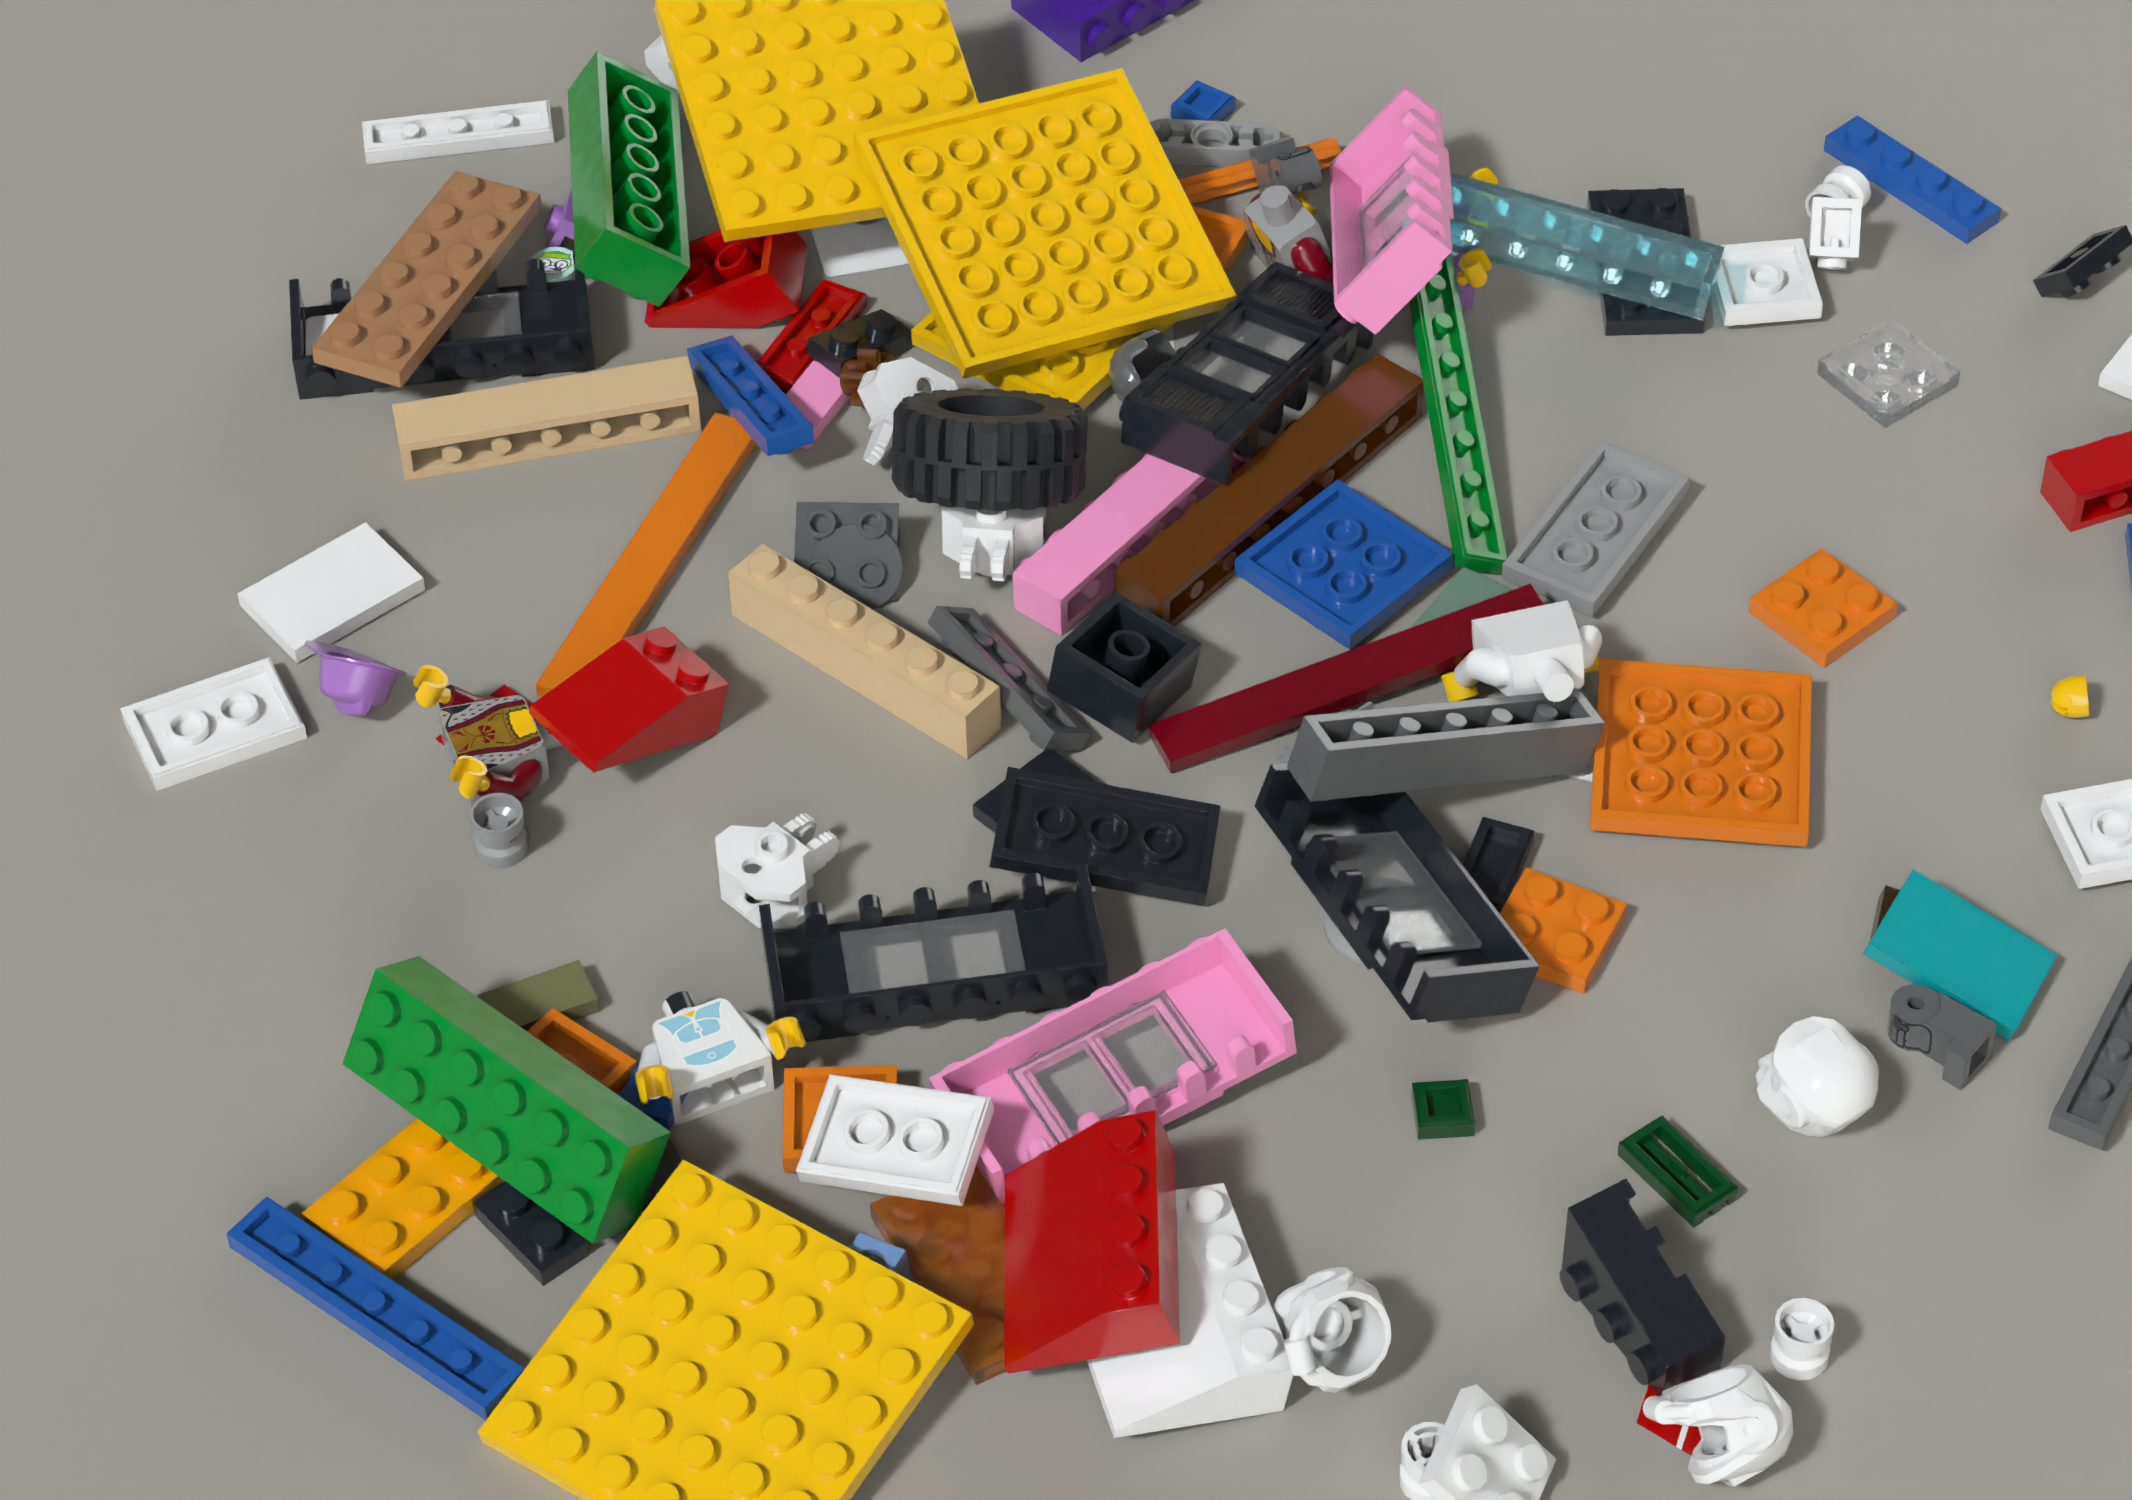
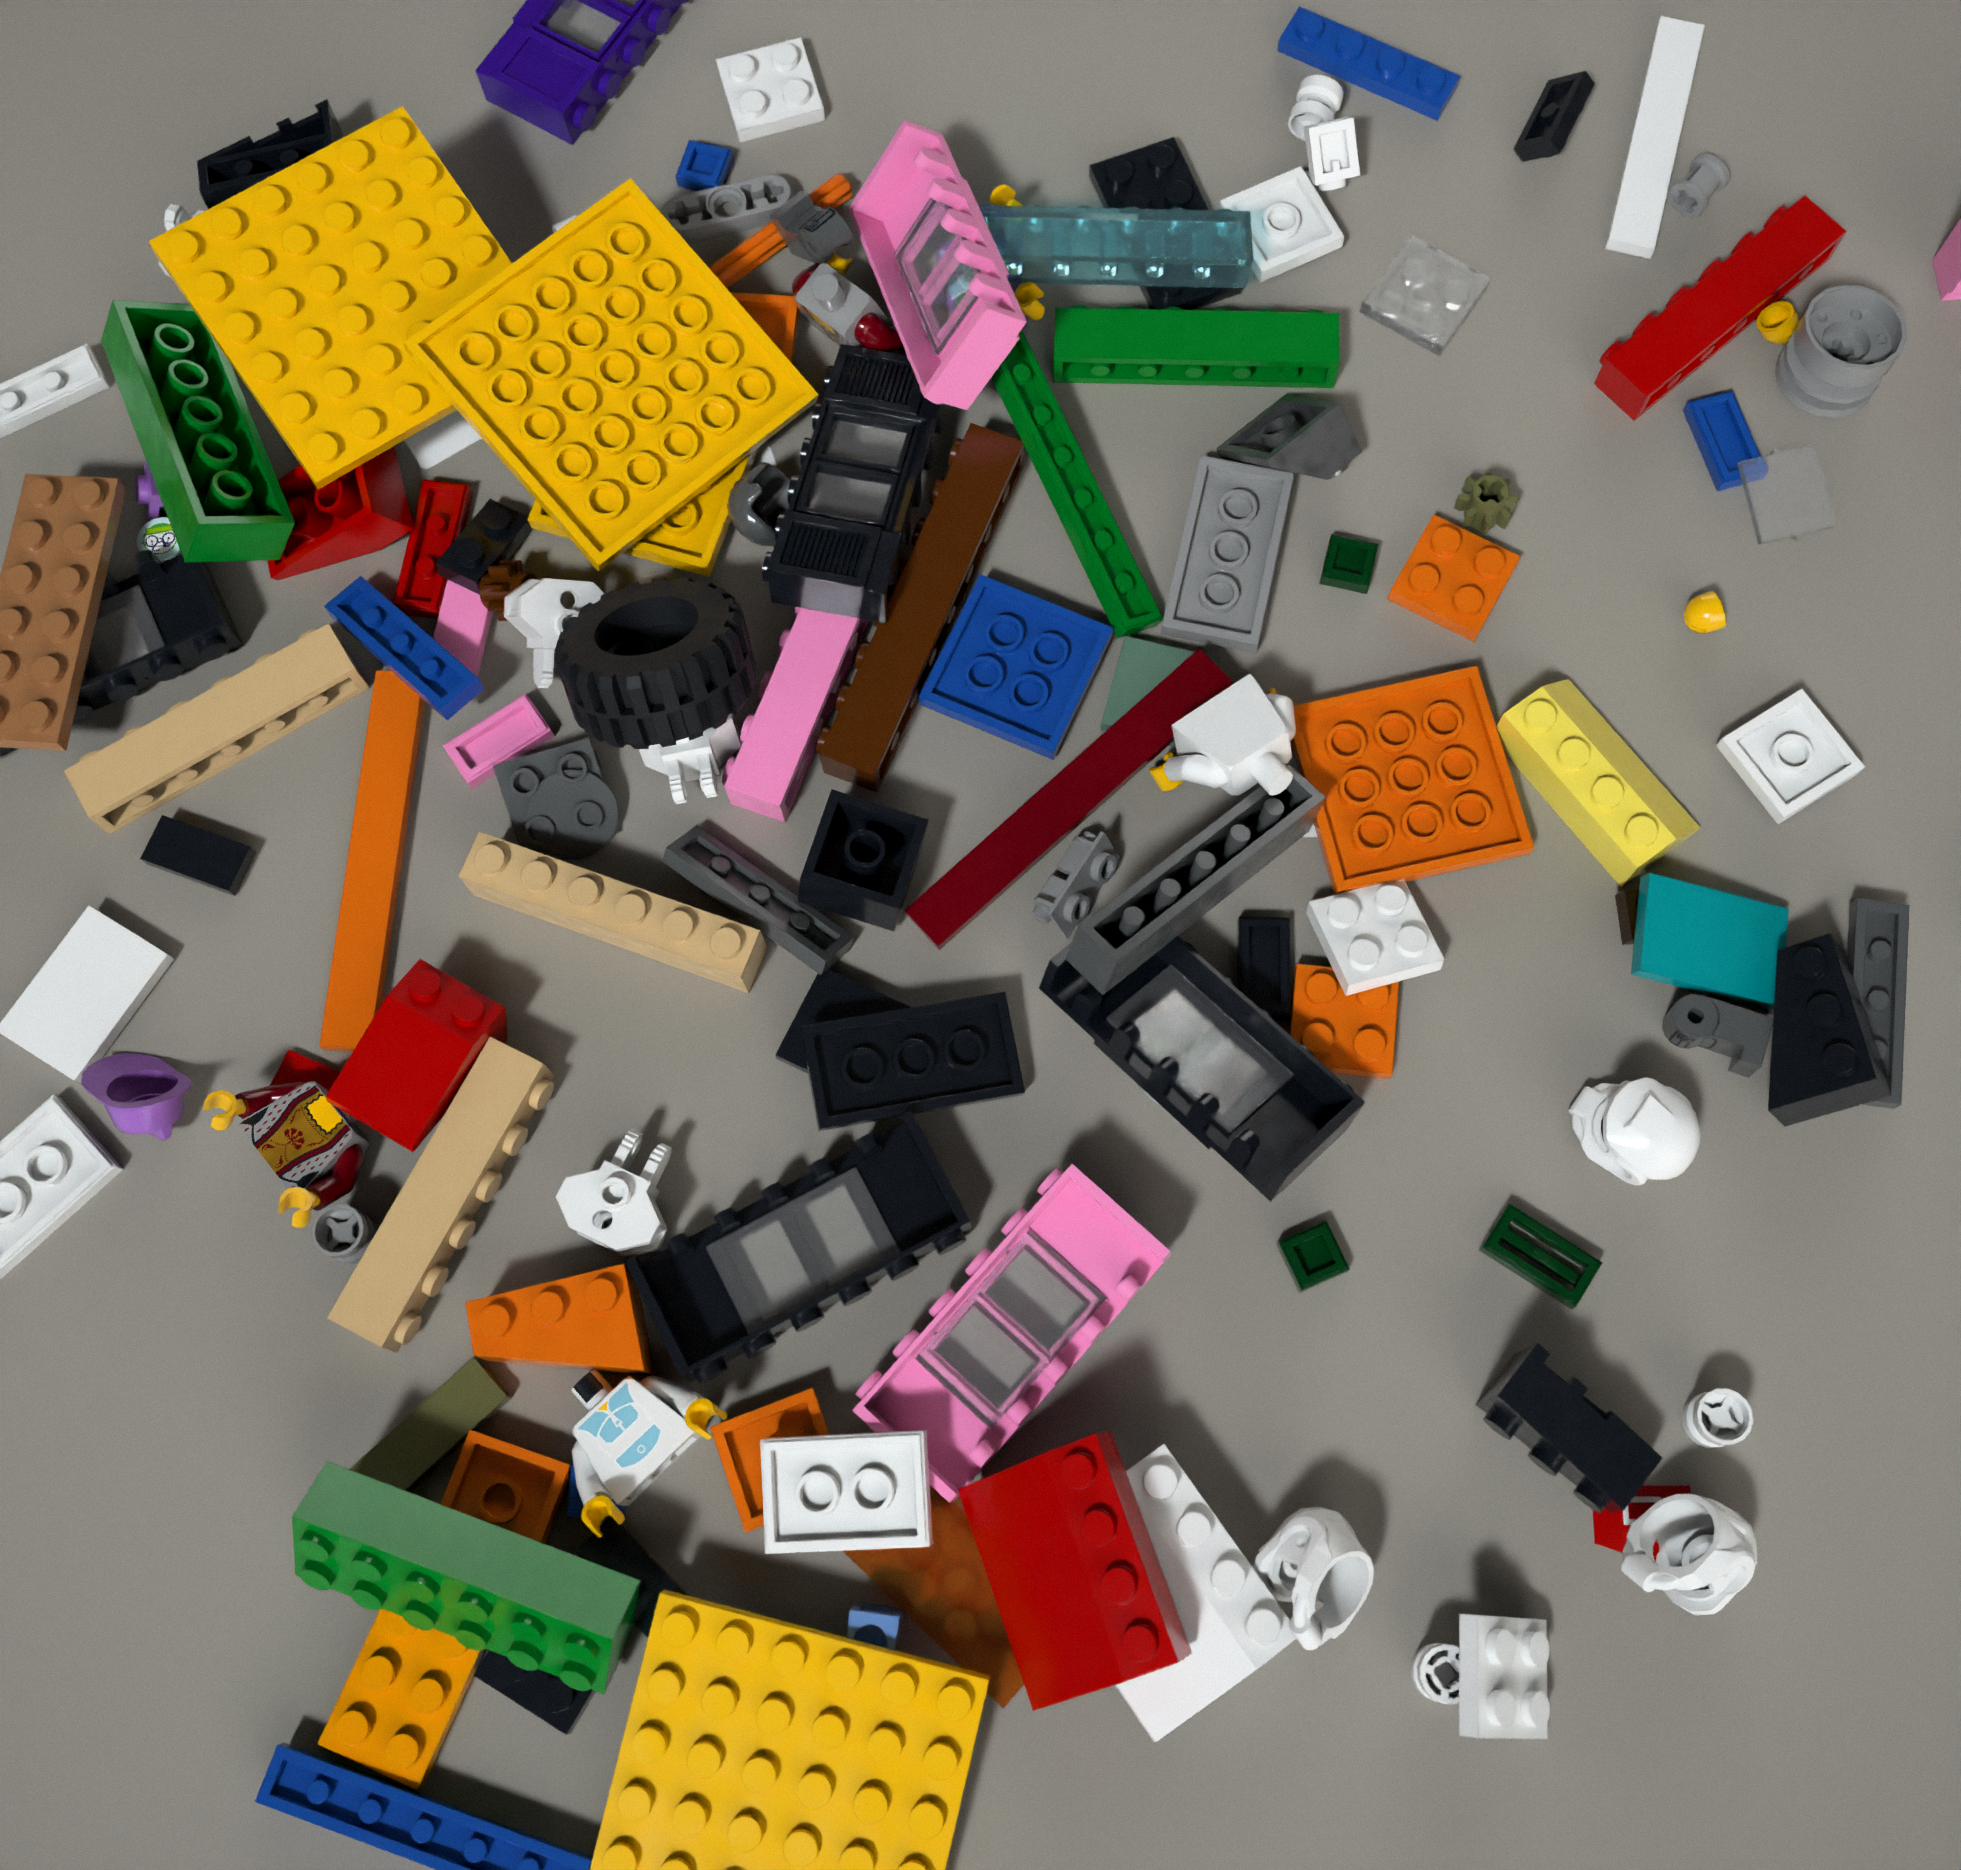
camera: 15 degrees left, 25 degrees up
(483, 514) = (198, 855): none -> black tile
(604, 826) = (442, 1196): none -> tan brick
(675, 947) = (566, 1323): none -> orange wedge
(779, 499) = (497, 739): none -> bright pink tile
(1294, 61) = (770, 89): none -> white plate
(1613, 861) = (1374, 936): none -> white plate
(1633, 357) = (1196, 347): none -> green brick
(1711, 454) = (1296, 437): none -> flat silver slope
(1718, 570) = (1348, 564): none -> dark green tile
(1879, 550) = (1486, 502): none -> olive gear
(1894, 794) = (1593, 780): none -> light yellow slope
(2036, 1053) = (1820, 1036): none -> black wedge

